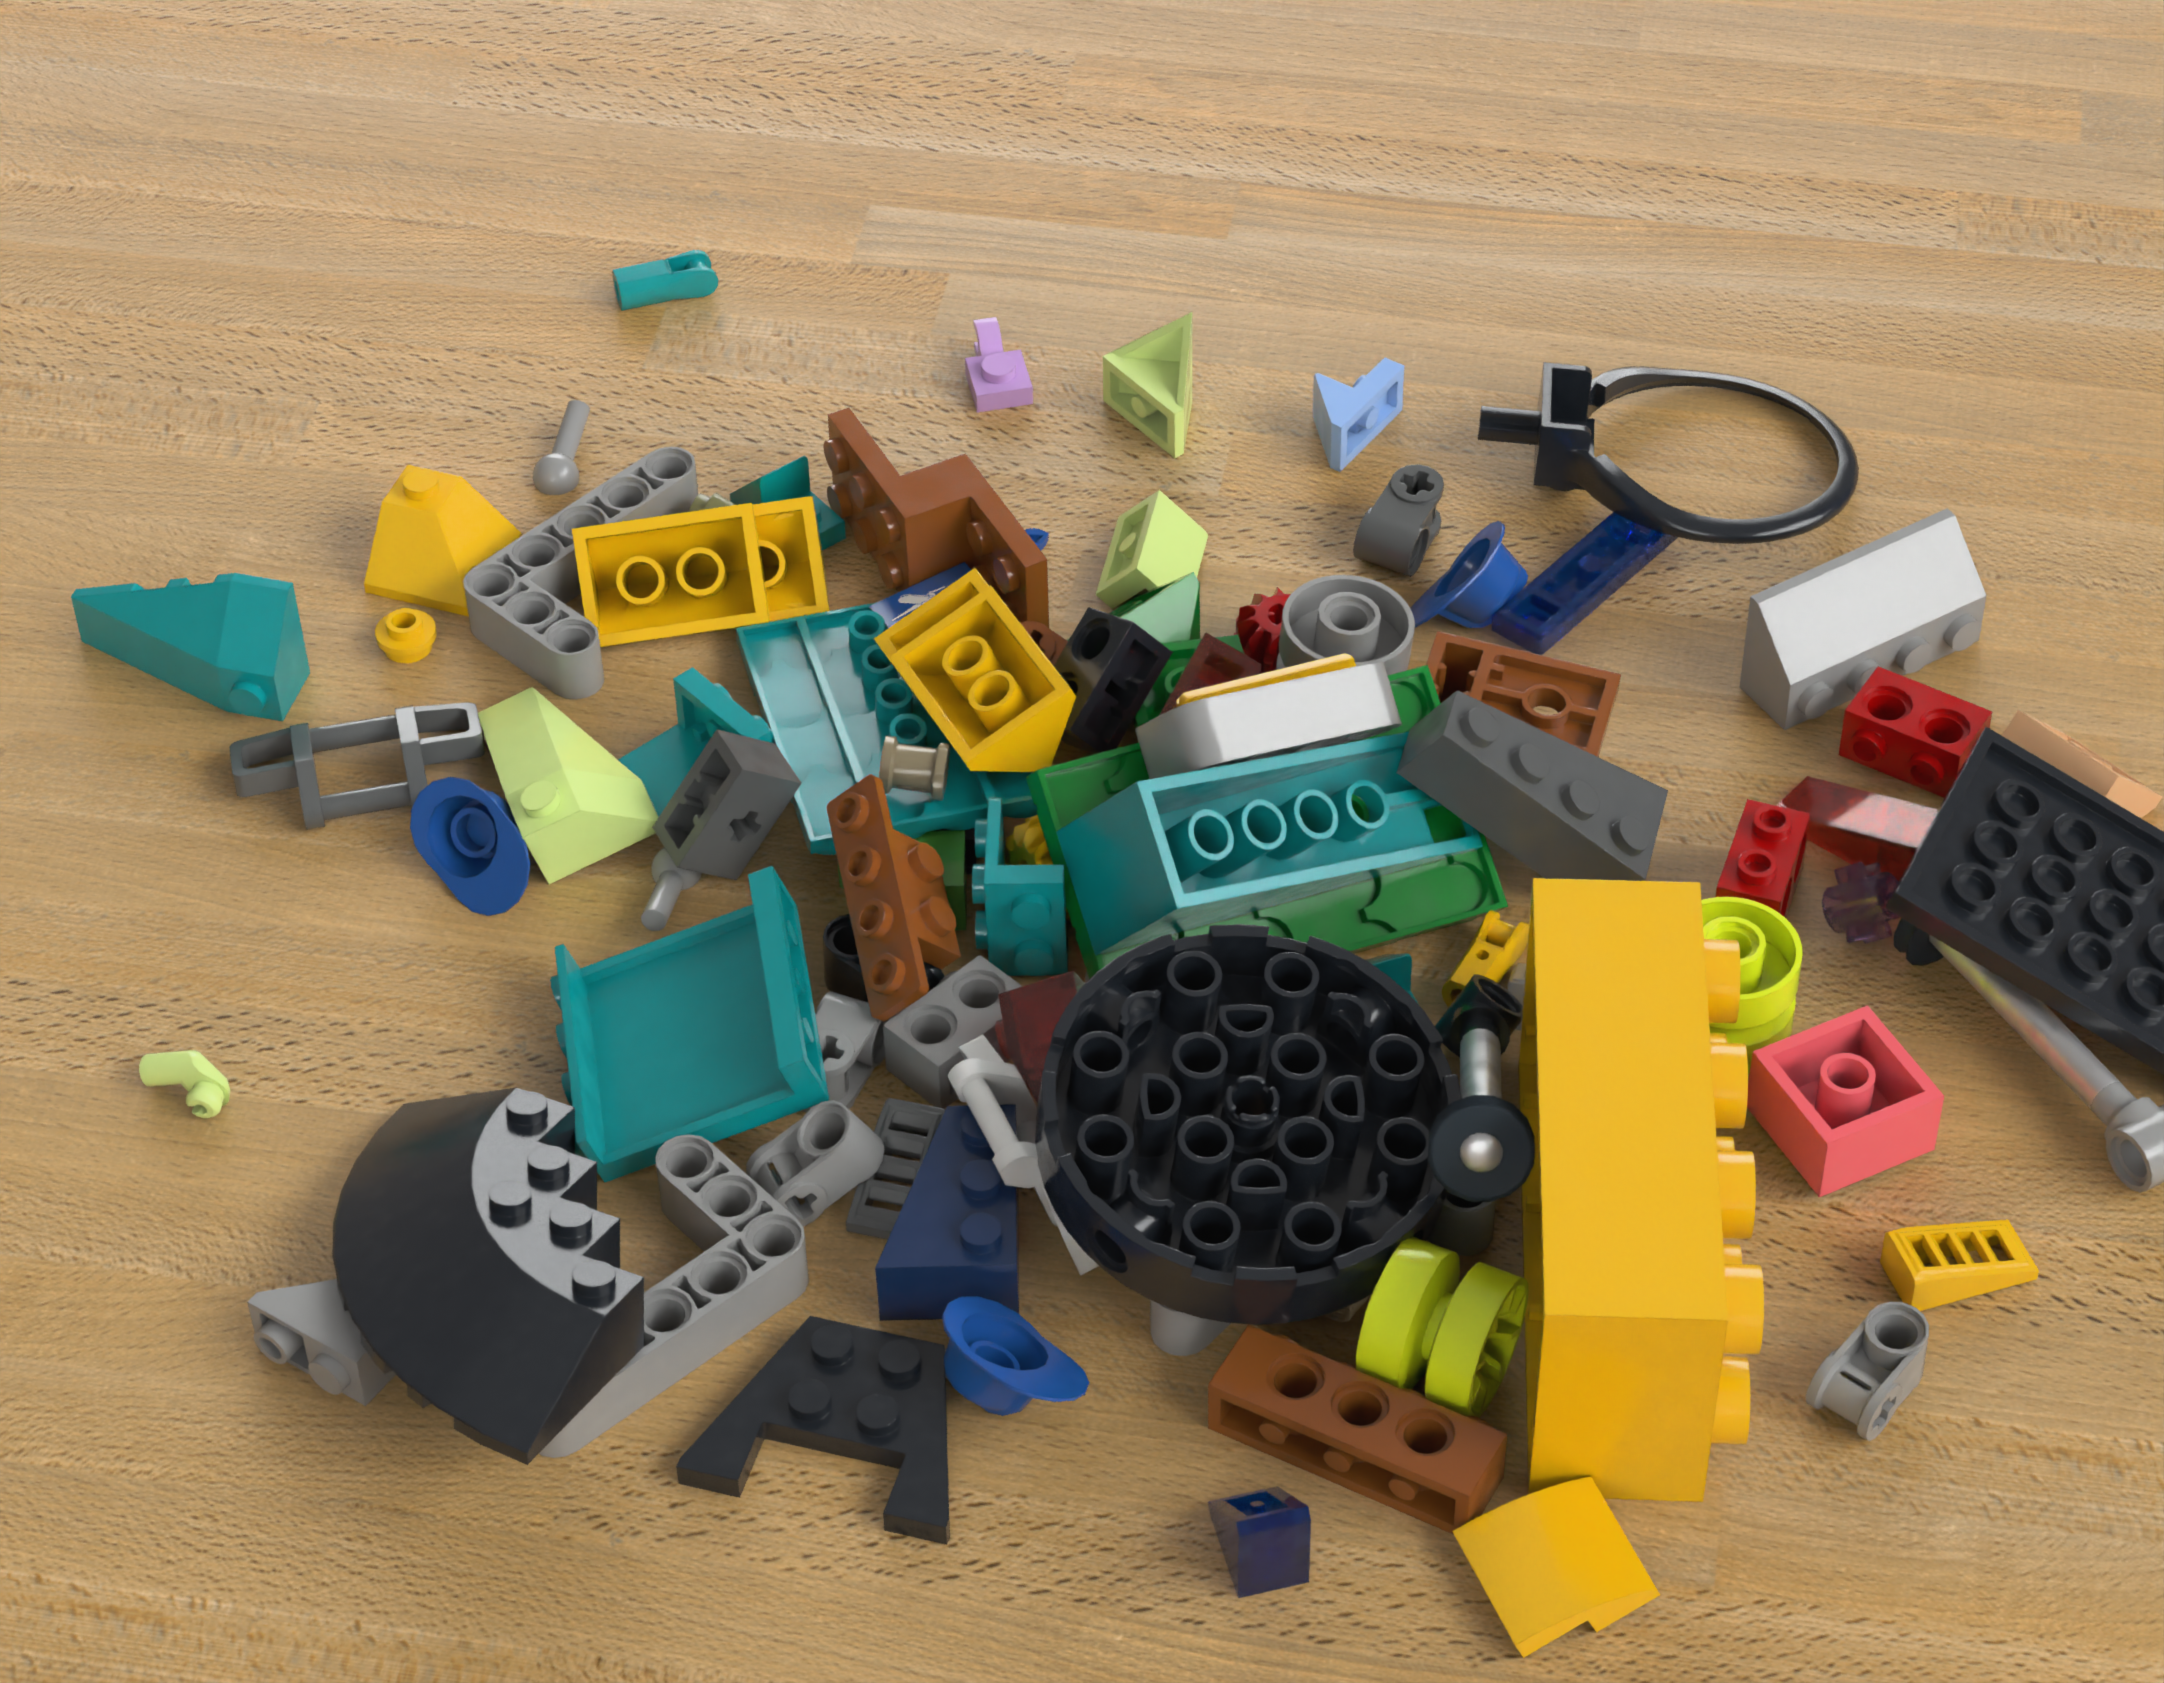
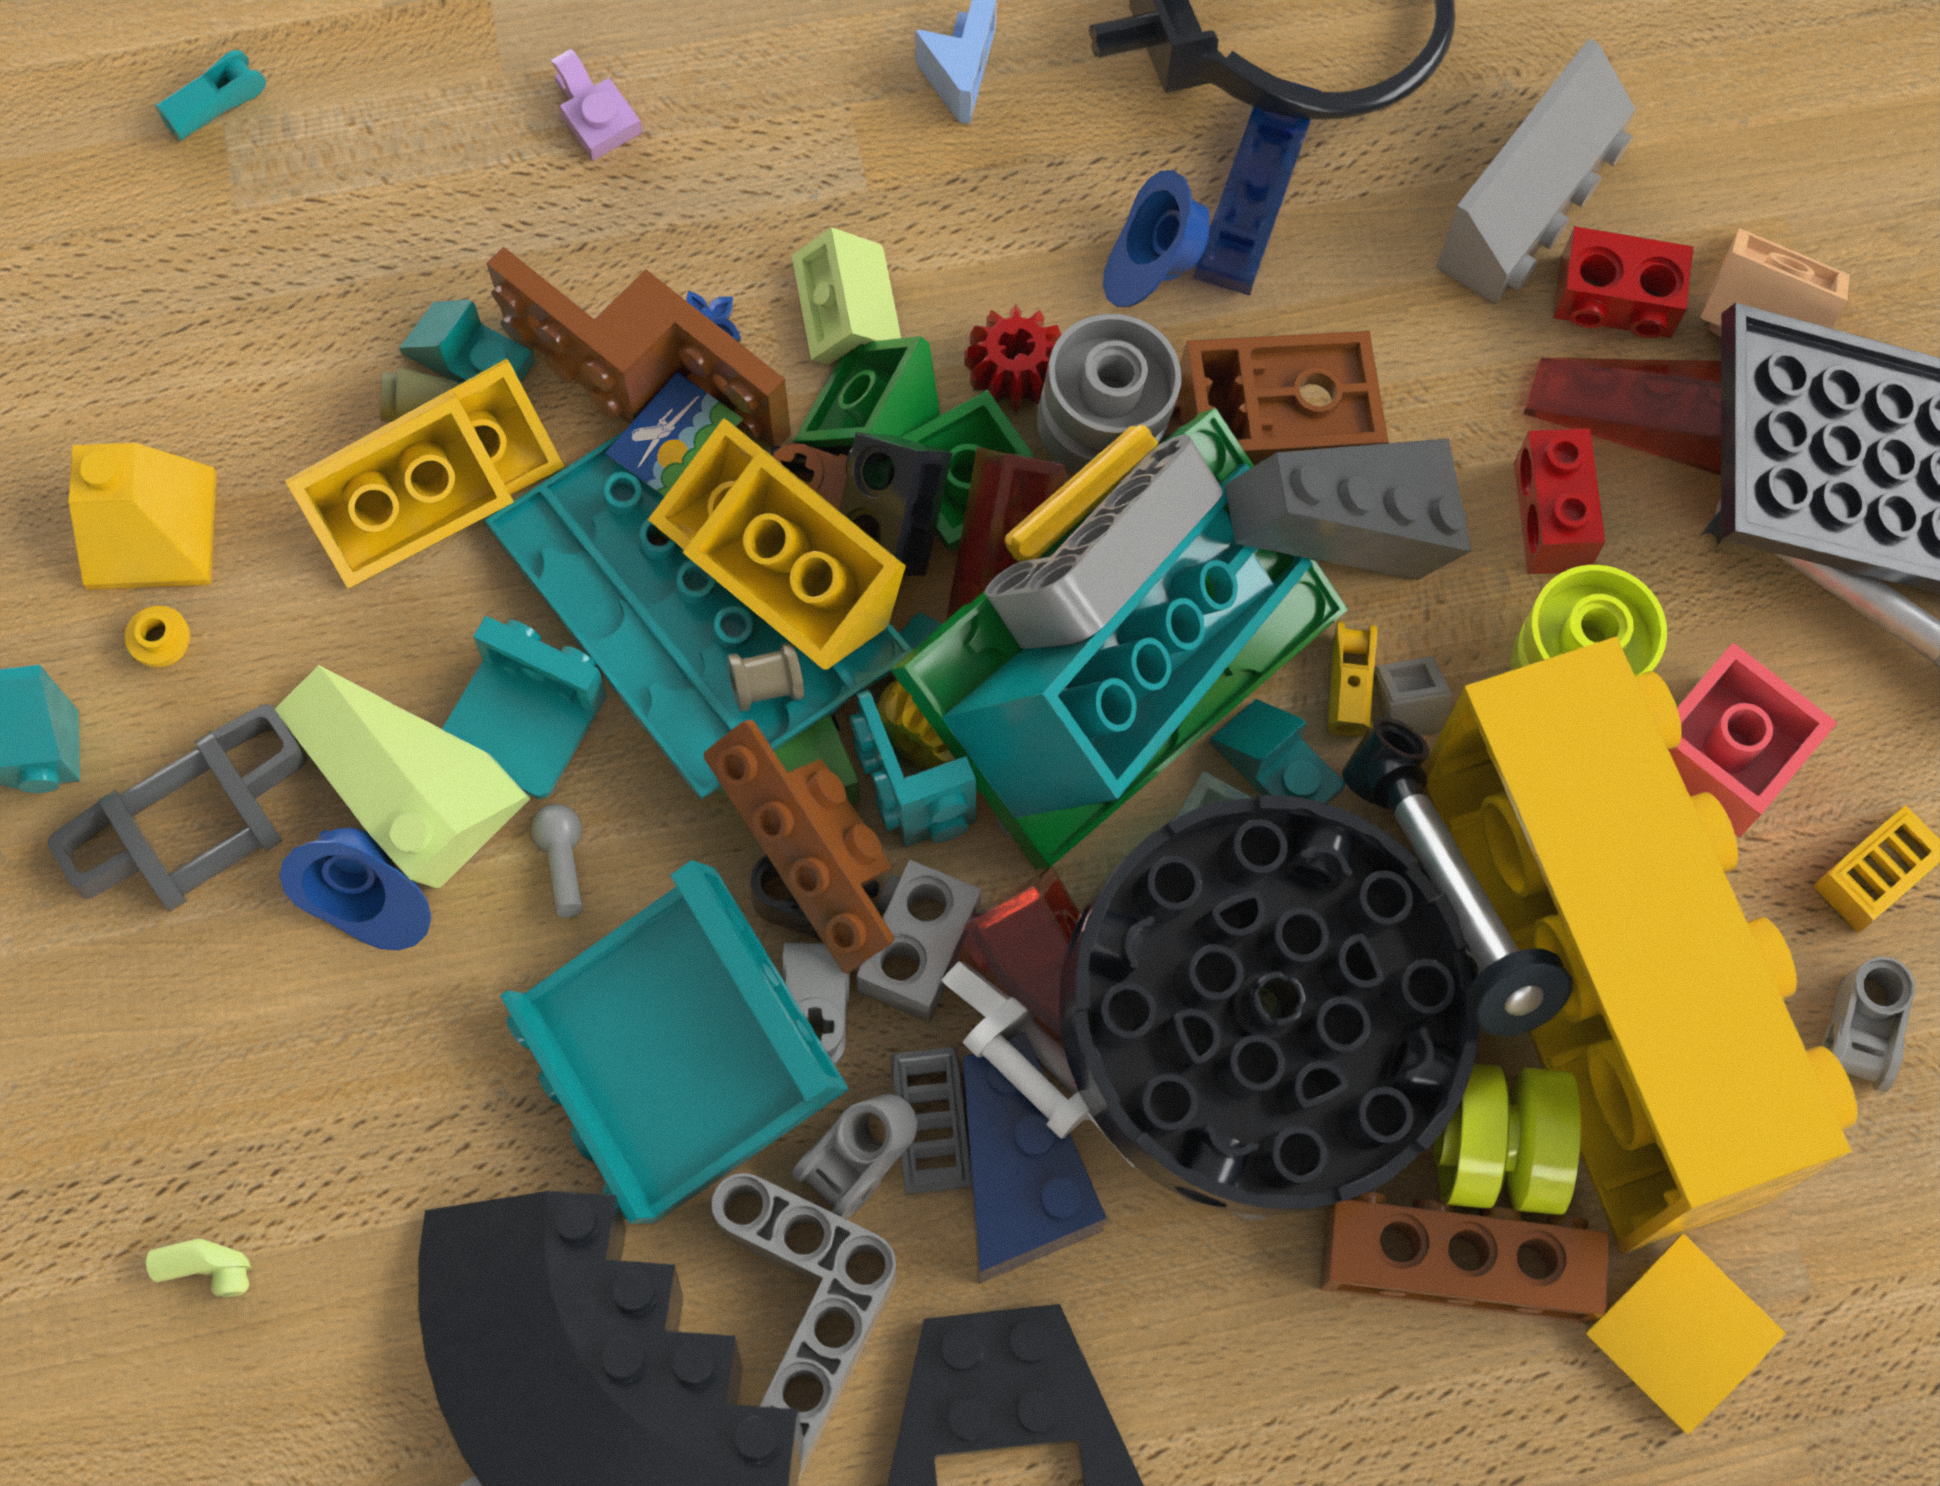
camera: 25 degrees left, 25 degrees up
(523, 590) = (262, 491): light grey beam -> none
(557, 471) = (211, 376): light grey bar -> none
(726, 805) = (591, 768): dark grey brick -> none
(1003, 1359) = (1137, 1312): blue piece -> none
(1153, 383) = (764, 87): yellowish green slope -> none
(1263, 1539) = (1424, 1399): clear blue slope -> none
(1402, 521) = (1066, 183): dark grey piece -> none
(1859, 902) = (1658, 500): gear -> none

